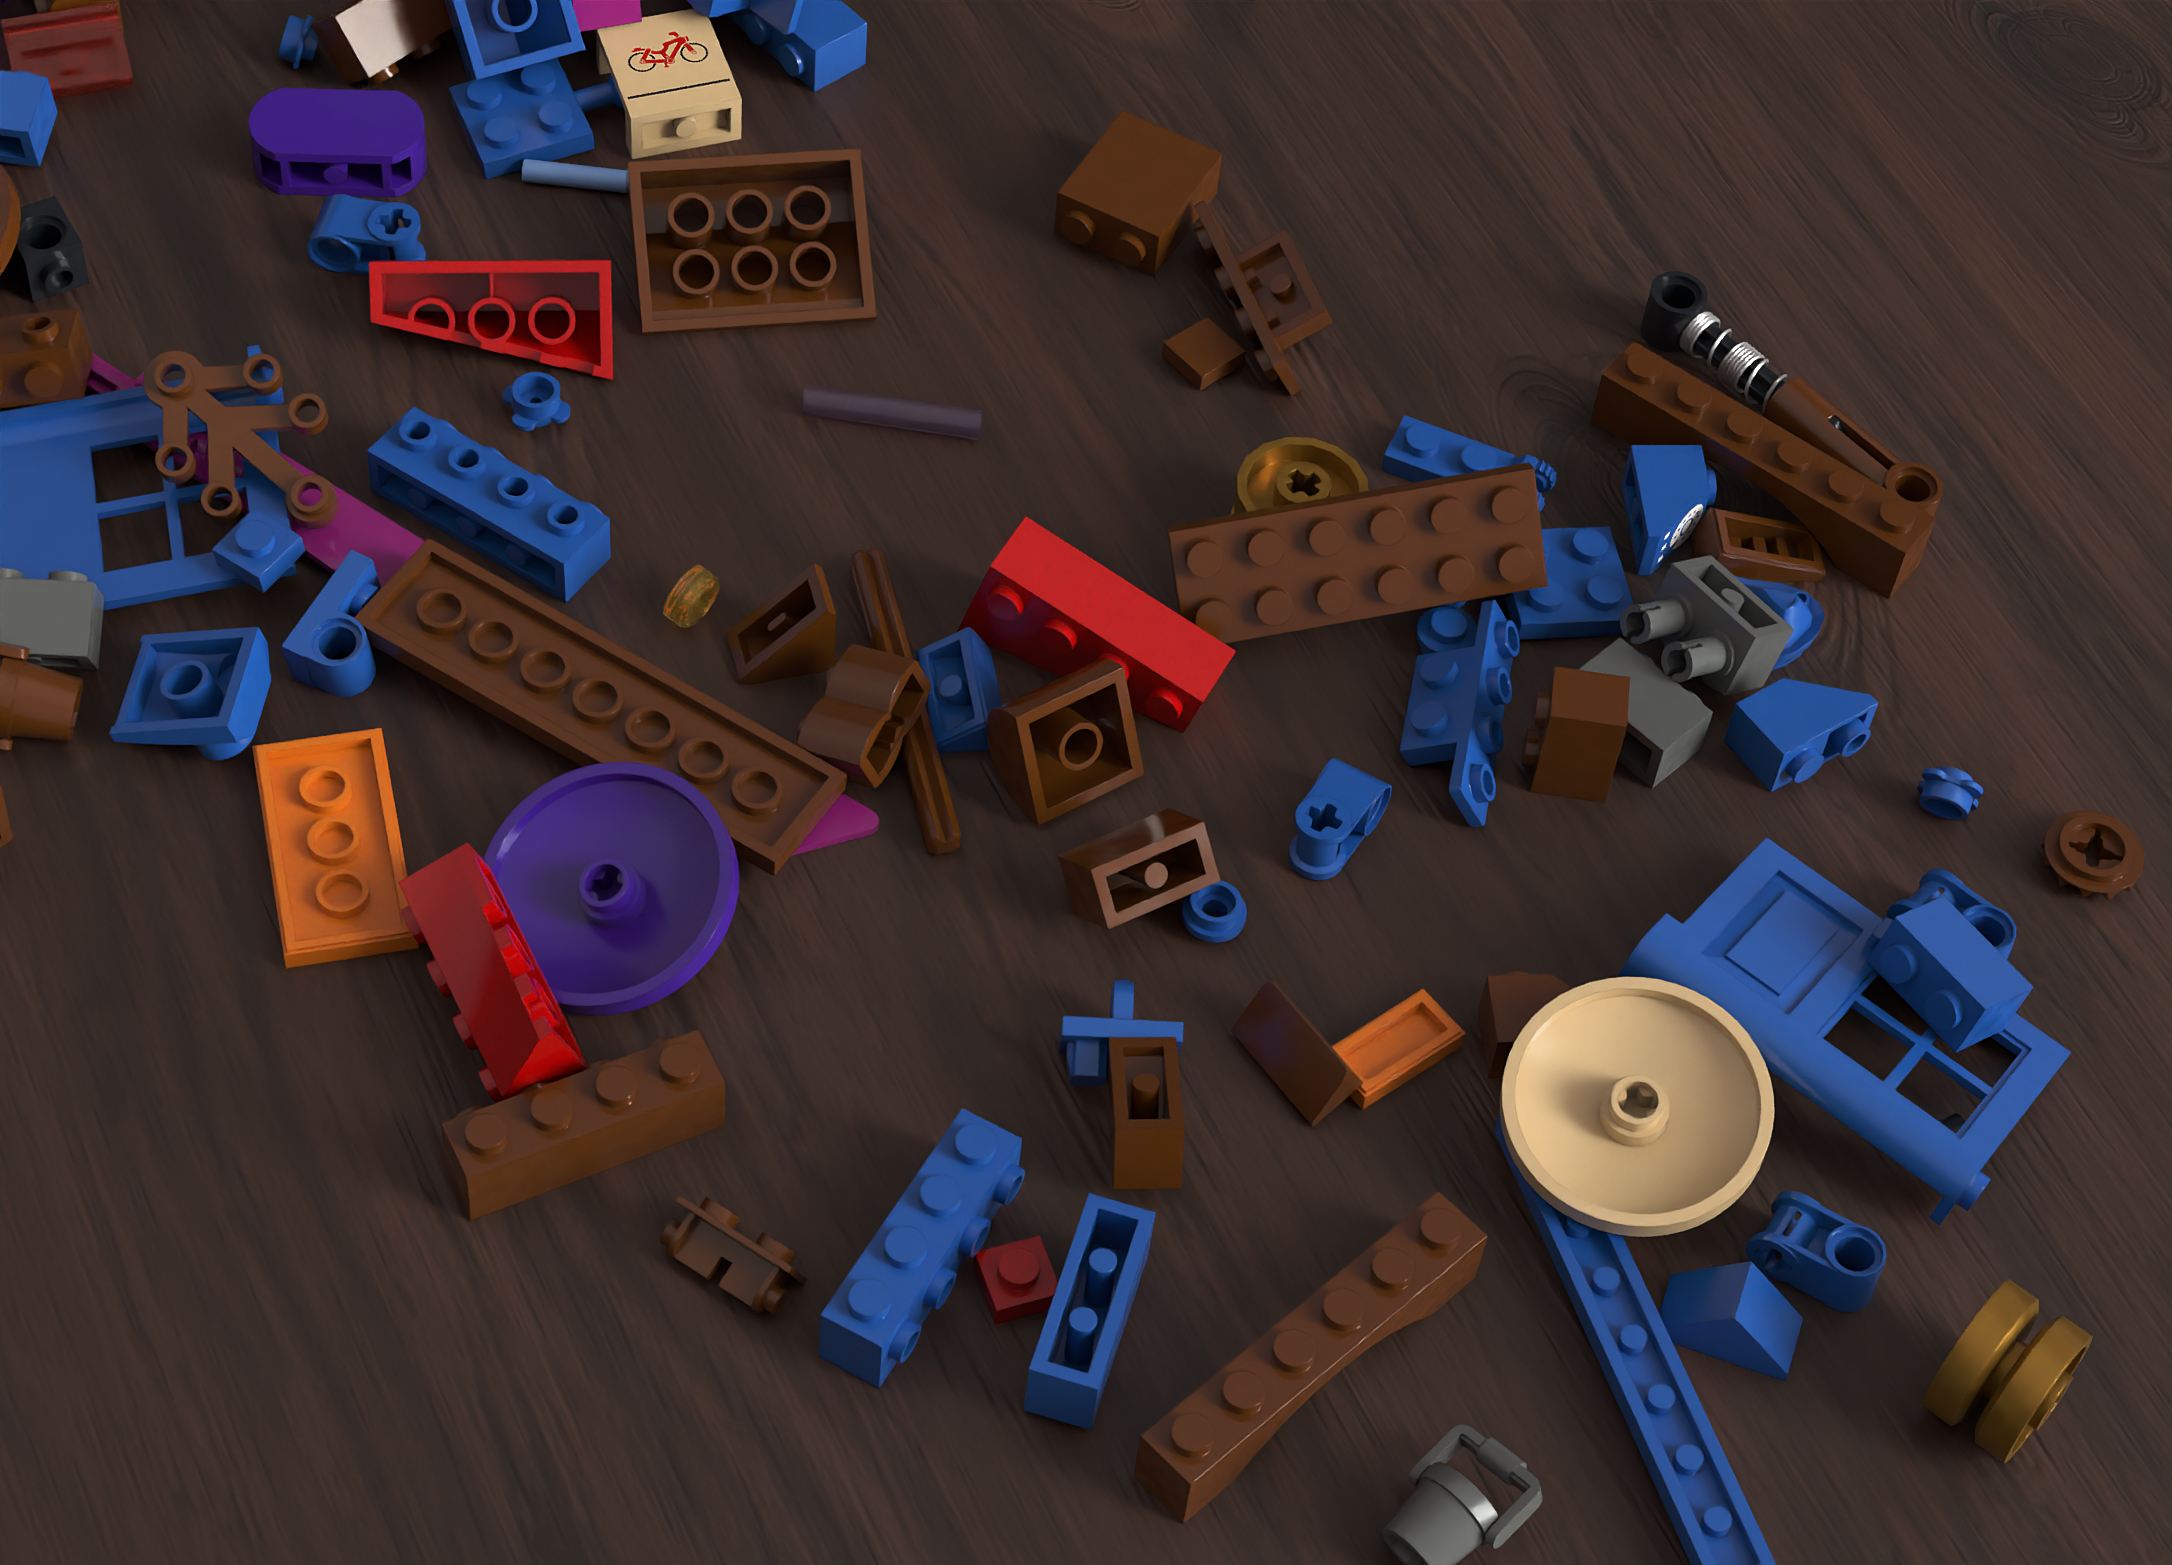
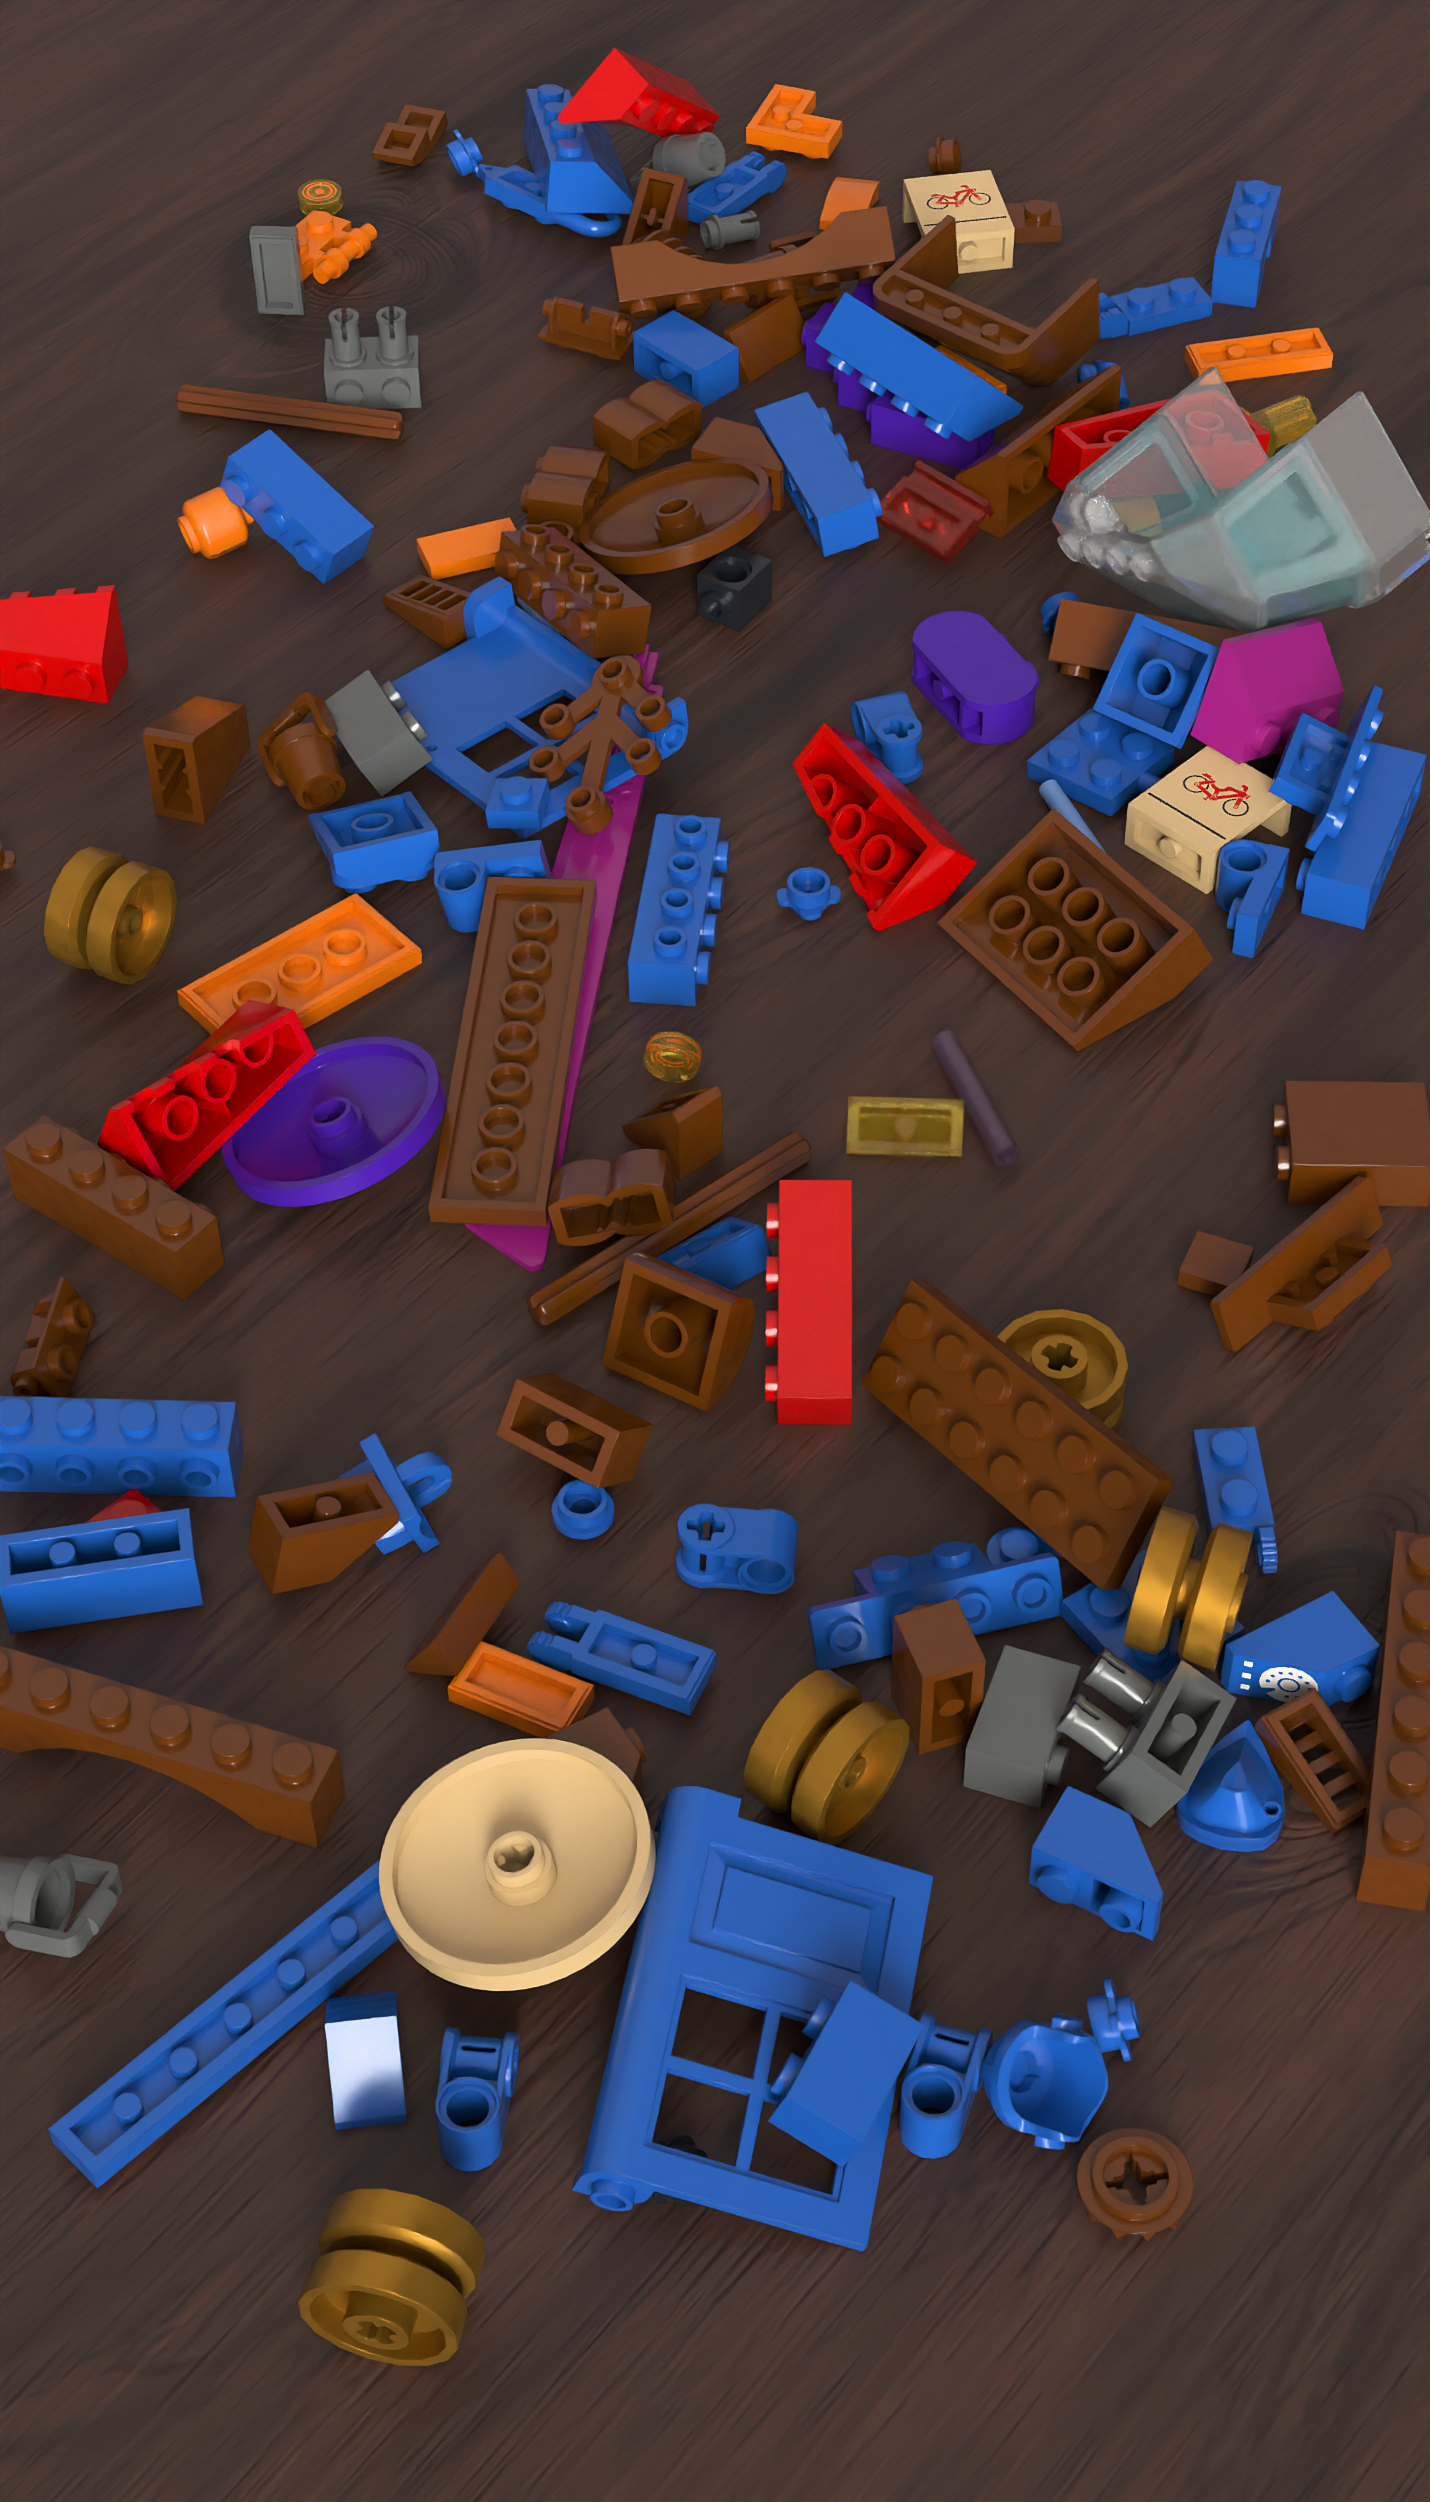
camera: 70 degrees right, 5 degrees down
(163, 954) = (110, 915): none -> pearl gold wheel
(783, 97) = (1249, 888): none -> blue plate
(892, 477) = (905, 1126): none -> clear yellow slope
(1404, 951) = (624, 1656): none -> blue hinge
(1614, 520) = (1189, 1589): none -> pearl gold wheel
(1628, 845) = (826, 1756): none -> pearl gold wheel
(1993, 854) = (1046, 2079): none -> blue cap

